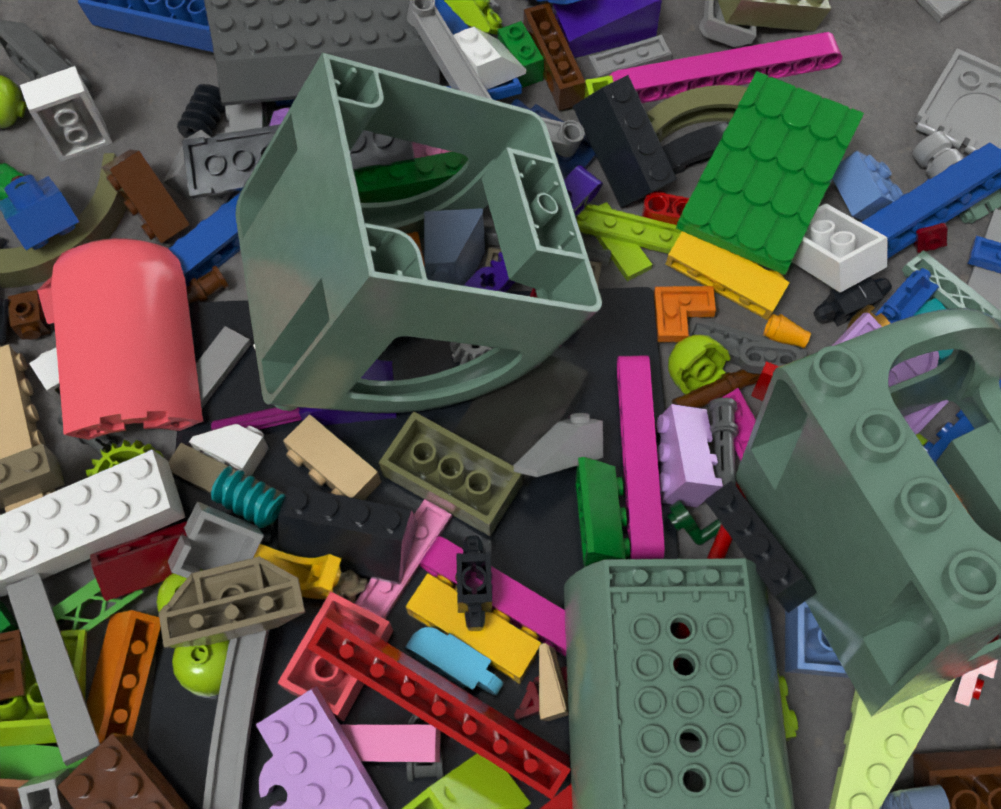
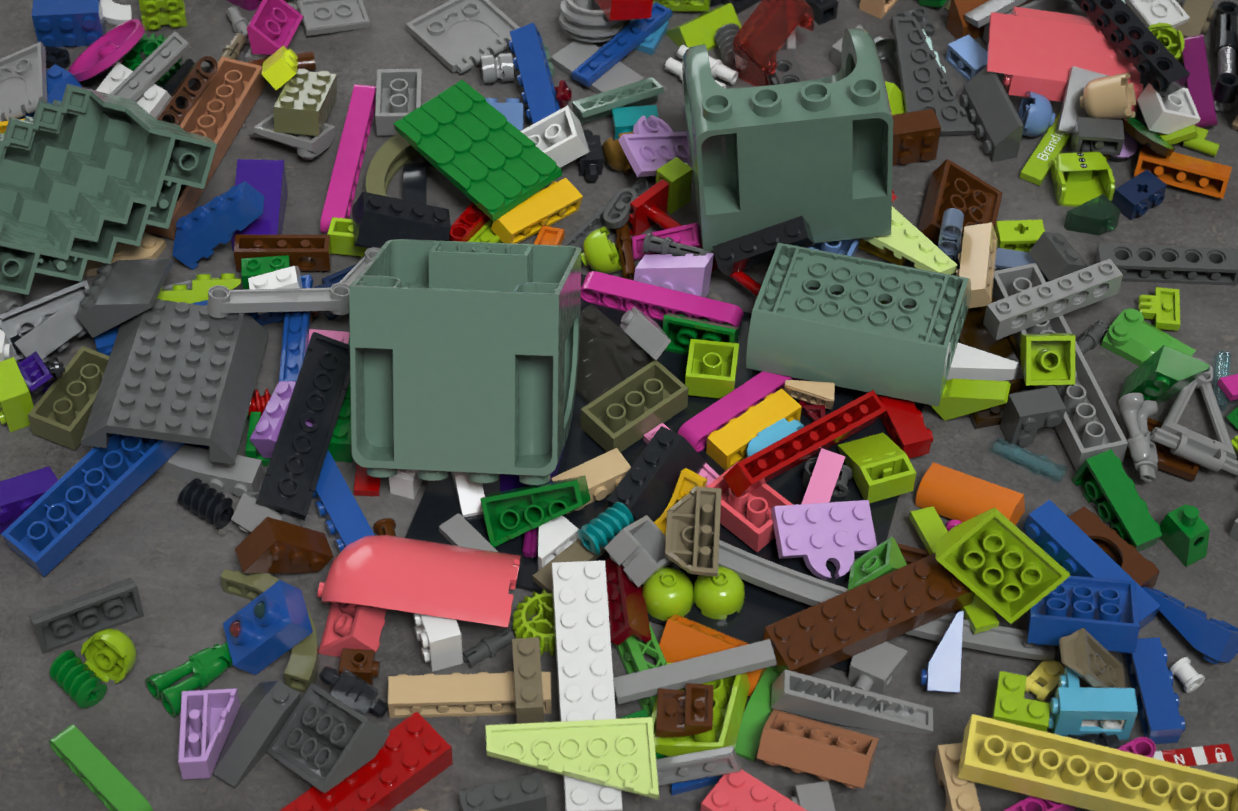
camera: 75 degrees left, 15 degrees down
(66, 113) = (170, 587): white brick -> none
(261, 428) = (528, 507): none -> green wedge
(474, 604) = (728, 406): black piece -> none
(546, 545) = (711, 368): none -> lime brick
(633, 55) = (302, 210): light grey tile -> none
(682, 519) = (722, 293): dark green plate -> none
(786, 331) = (595, 200): light orange cone -> none
(835, 74) = (396, 96): none -> light grey brick
(909, 296) = (608, 119): blue hinge -> none

